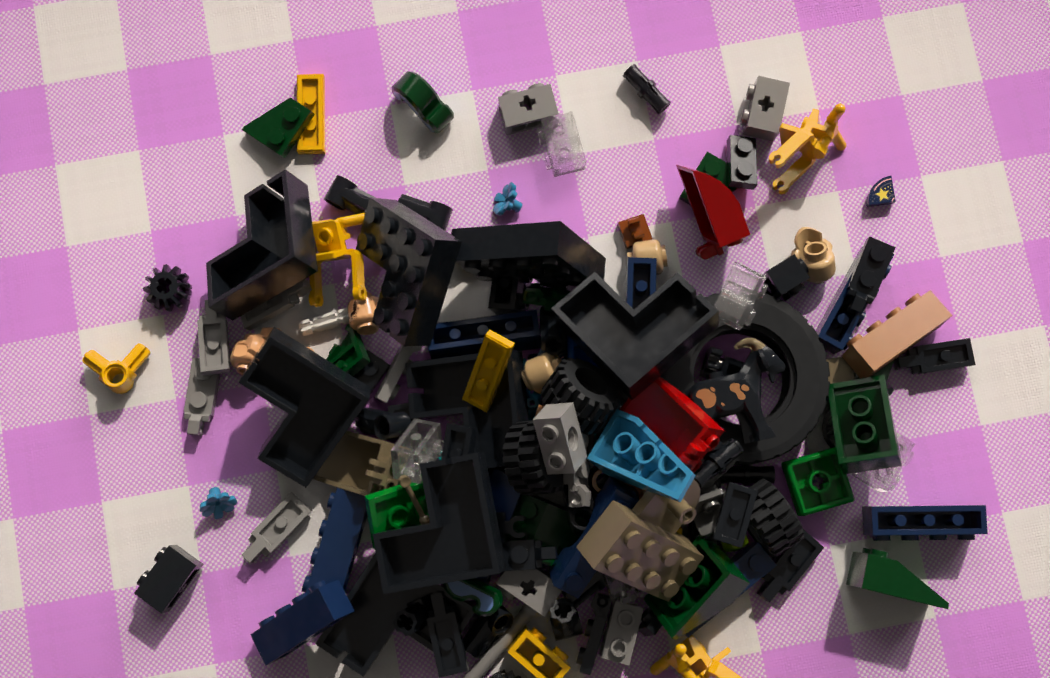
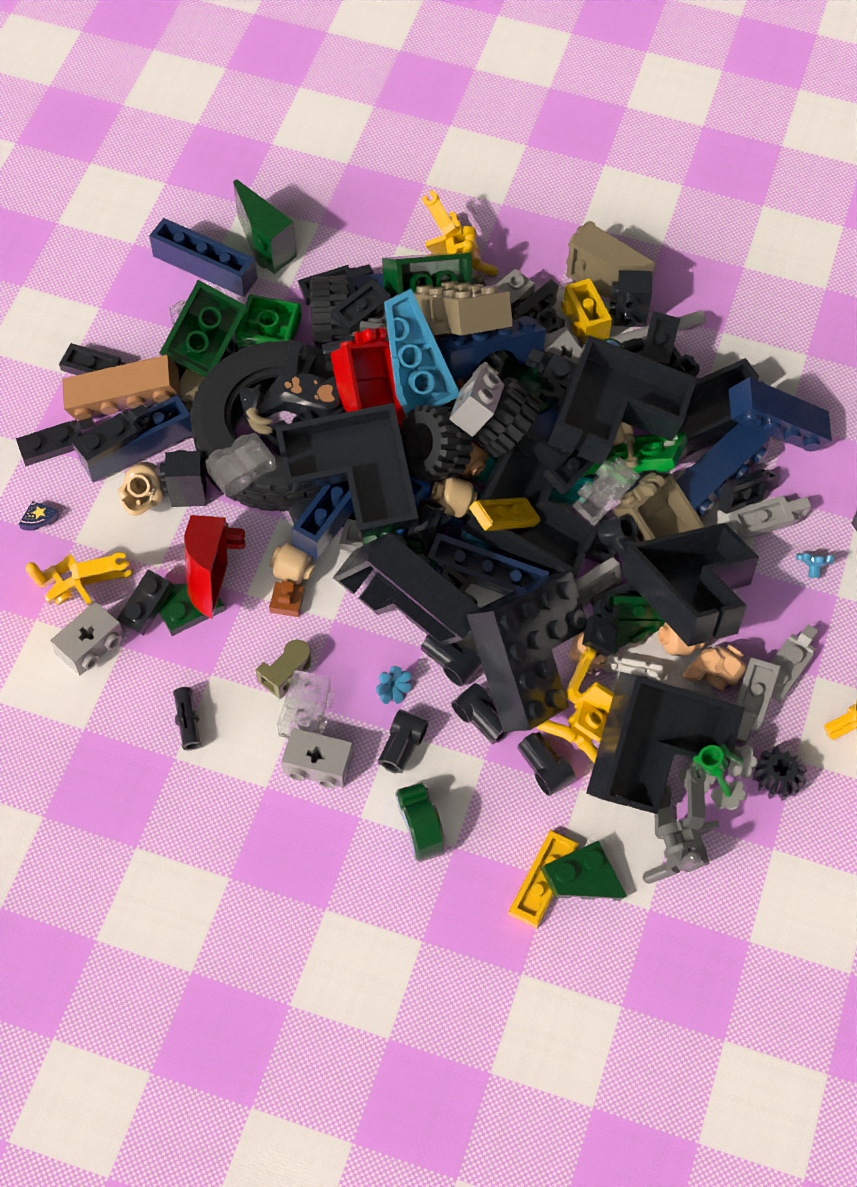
camera: 150 degrees left, 20 degrees down
(211, 243) = (714, 763): none -> plant
(215, 187) = (683, 838): none -> dark grey piece
(303, 540) = (746, 490): none -> black hinge
(357, 319) = (600, 631): none -> black plate
(472, 164) = (405, 733): none -> black piece
(595, 178) = (279, 675): none -> olive leg
(920, 267) = (52, 440): none -> black hinge

